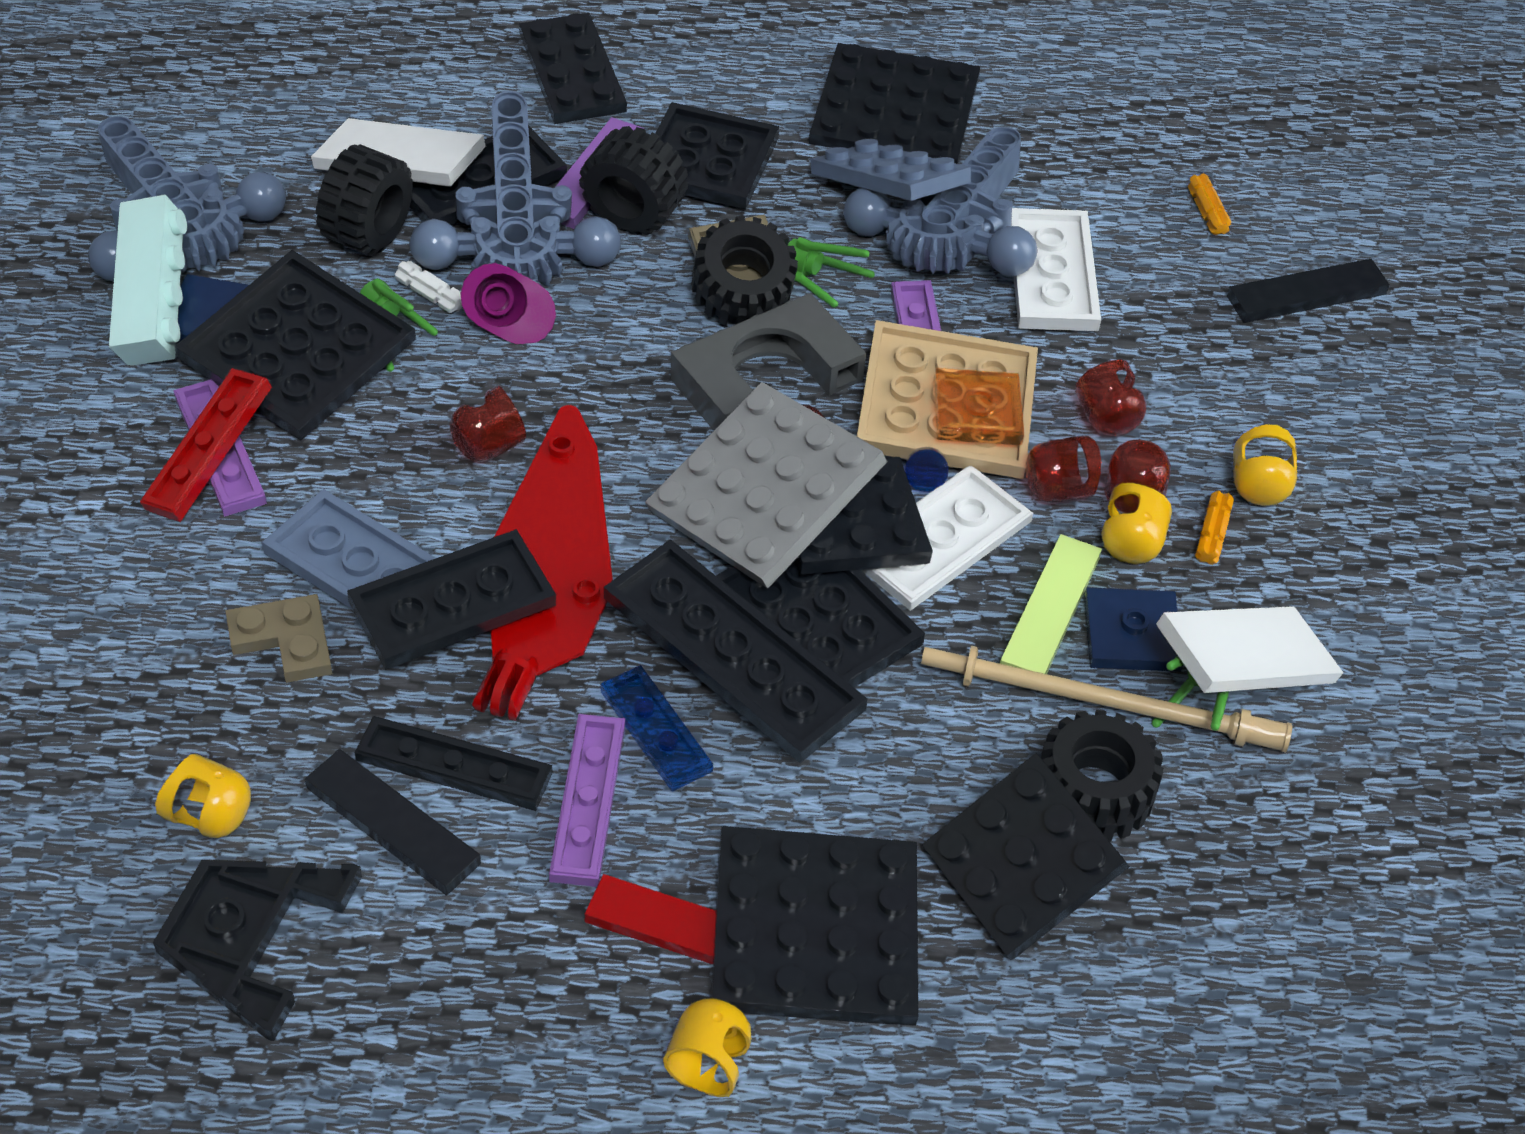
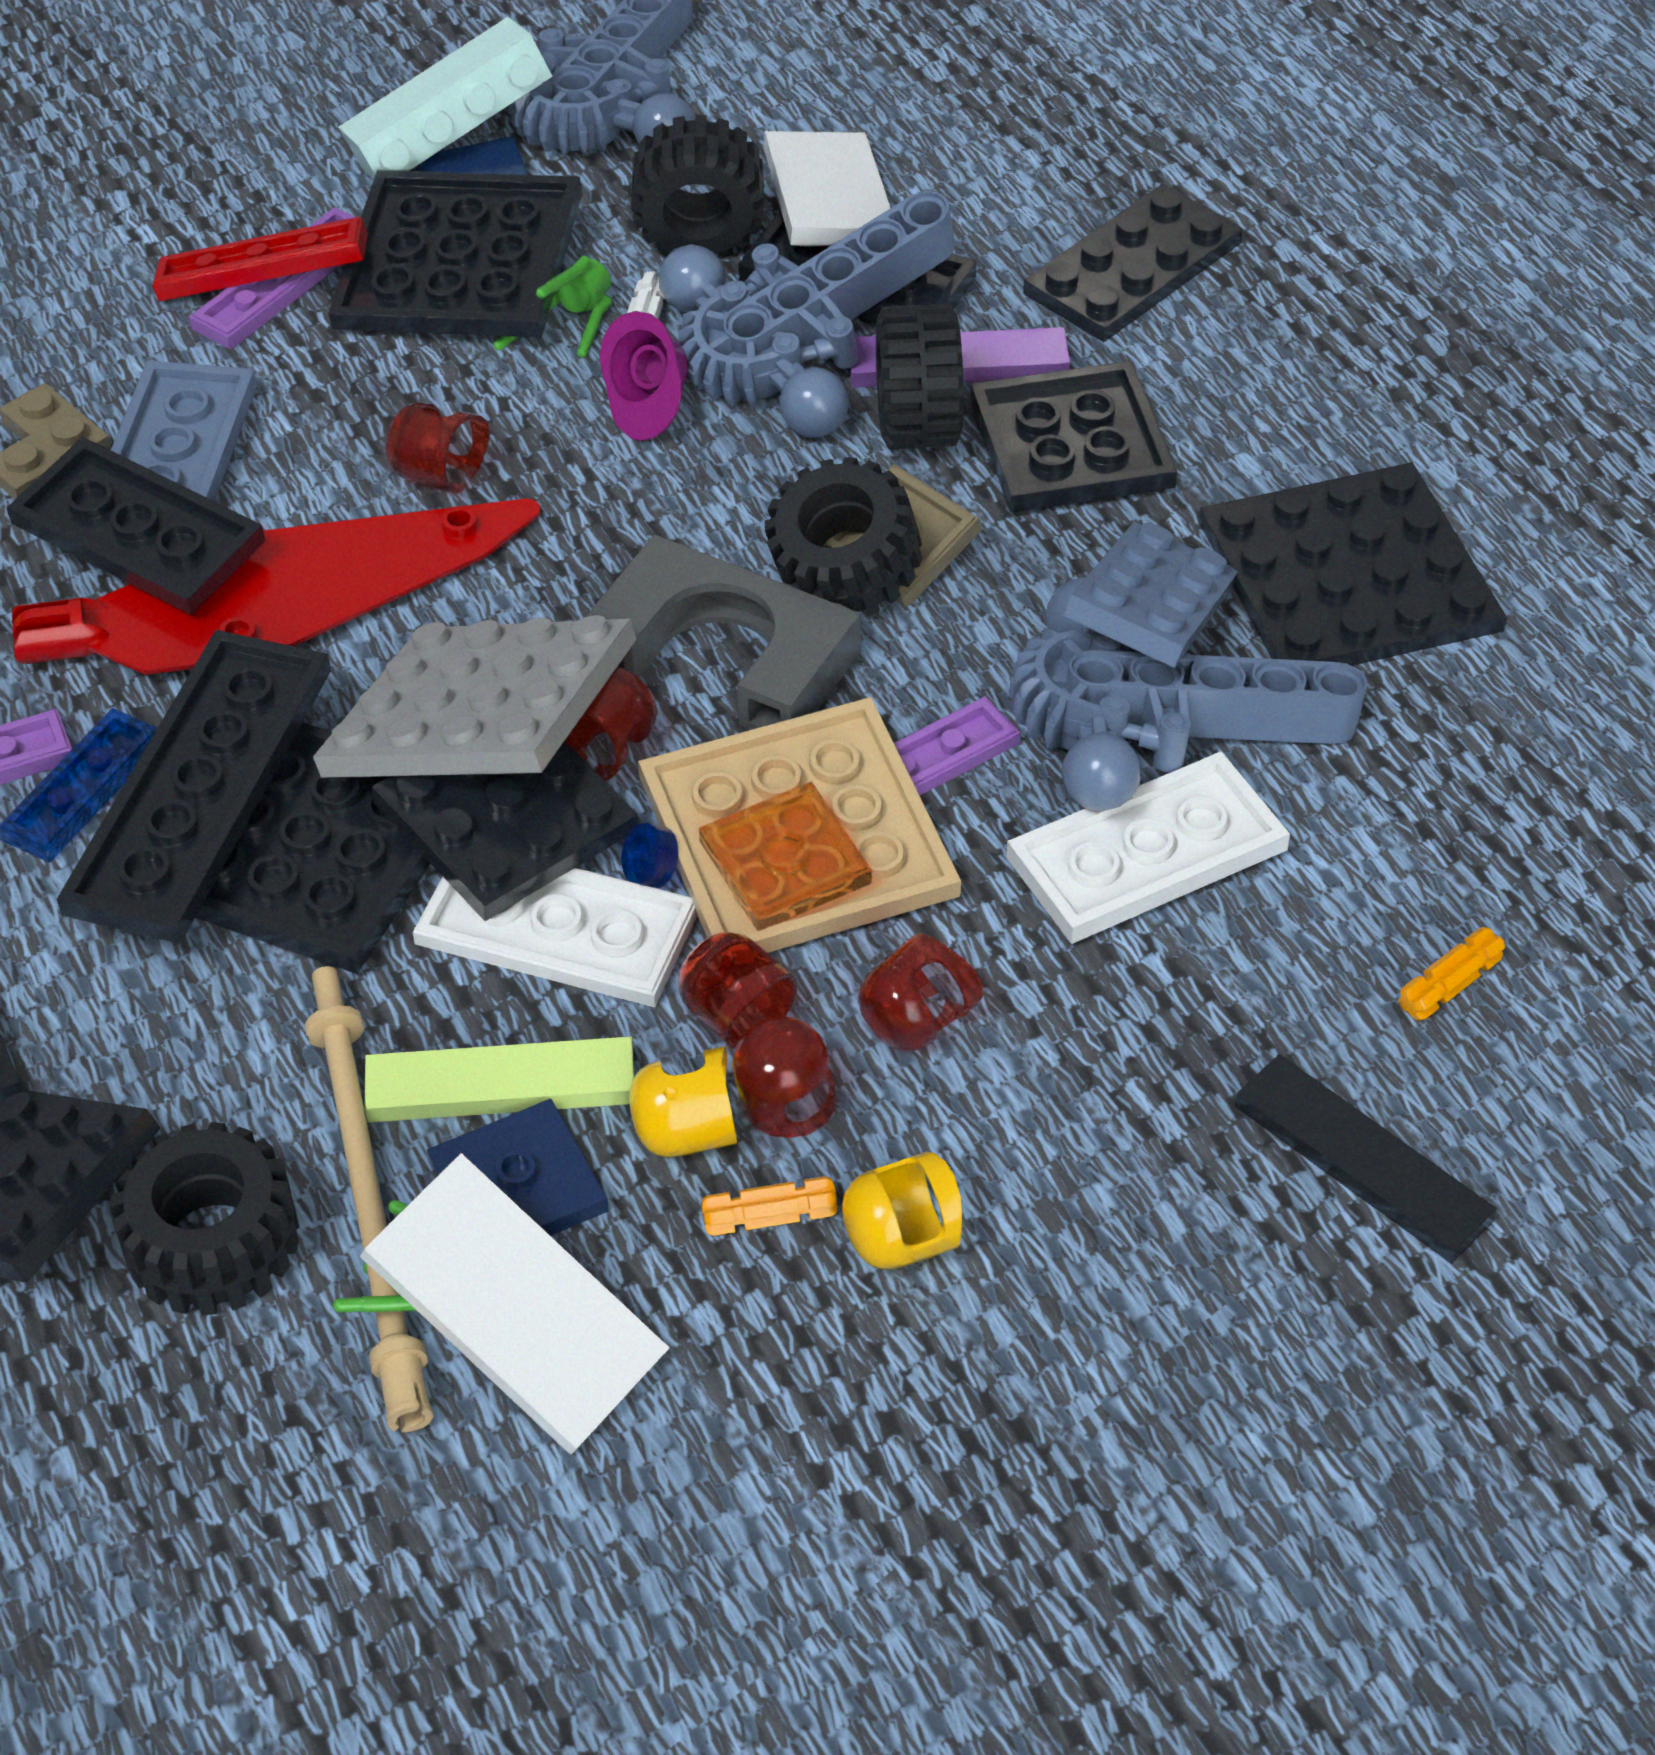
camera: 65 degrees right, 0 degrees up
(811, 258) = (952, 601): bright green plant -> none

